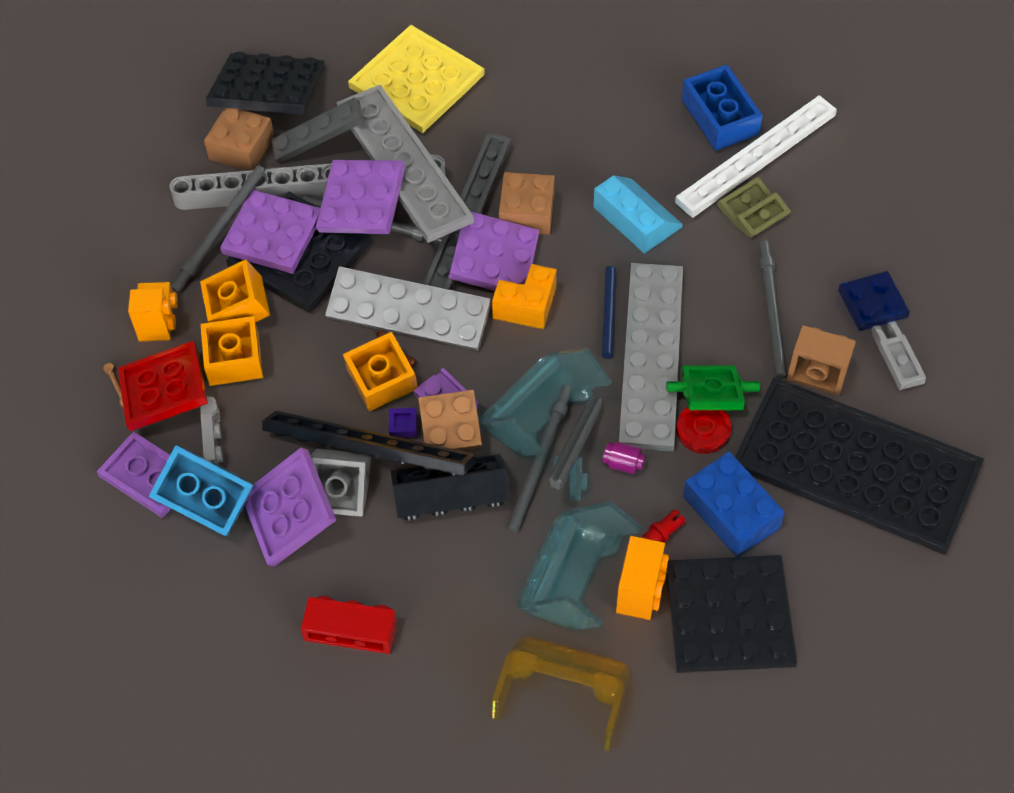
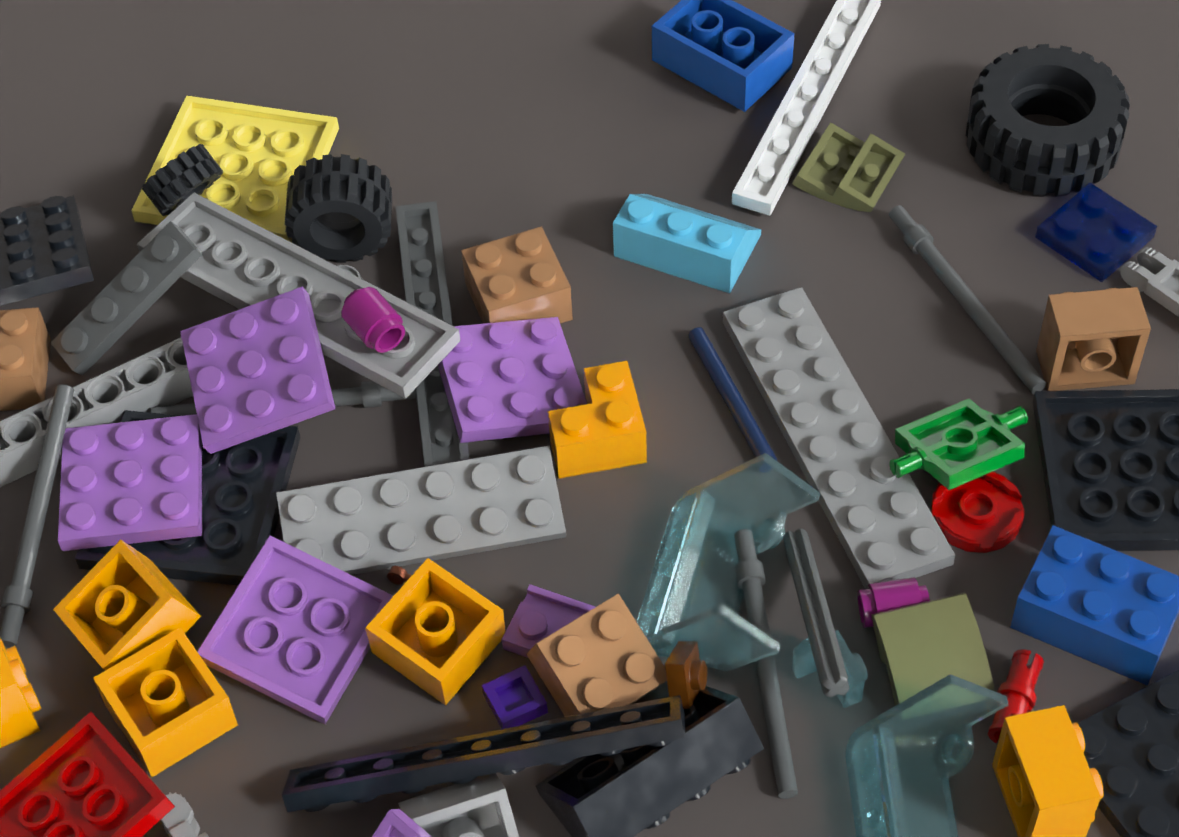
camera: 25 degrees left, 5 degrees down
(311, 340) = (294, 629): none -> medium lavender plate
(377, 73) = (182, 177): none -> black tyre
(429, 193) = (373, 319): none -> magenta brick
(452, 122) = (338, 208): none -> black tyre
(489, 445) = (686, 672): none -> reddish brown plate
(630, 487) = (929, 643): none -> olive slope
(885, 198) = (1040, 155): none -> black tyre

